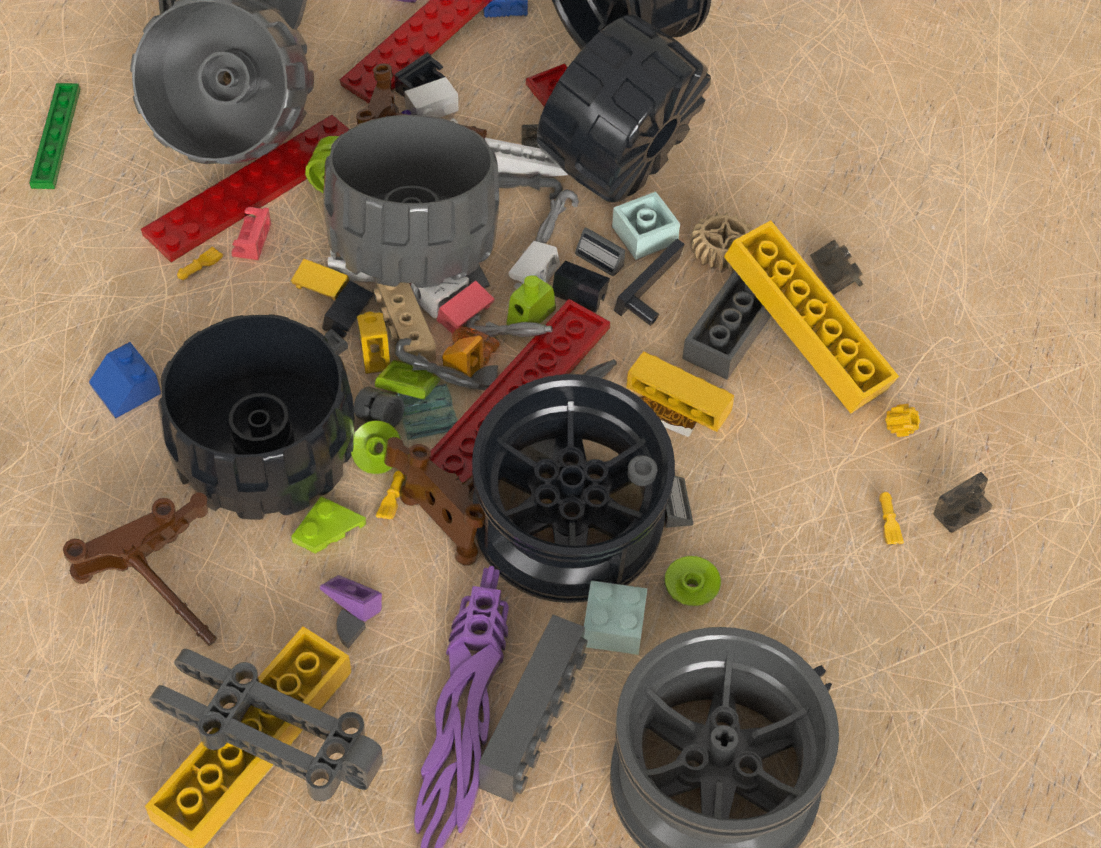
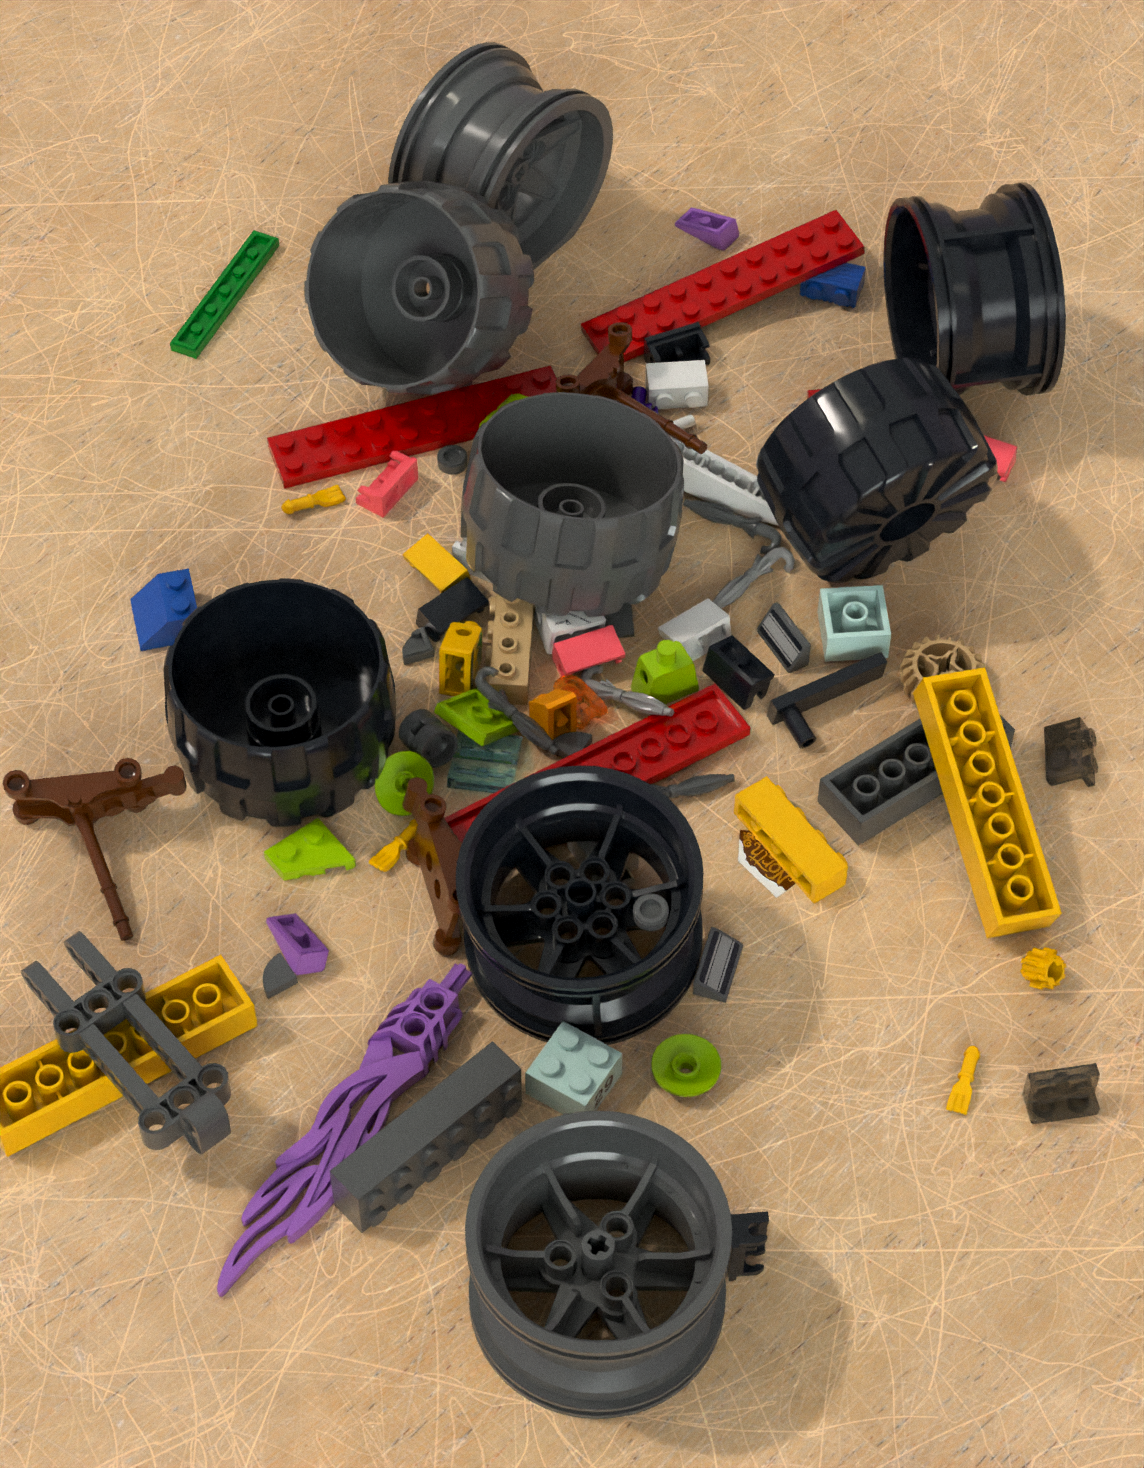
camera: 25 degrees right, 0 degrees up
(291, 202) = (452, 459): none -> dark grey tile

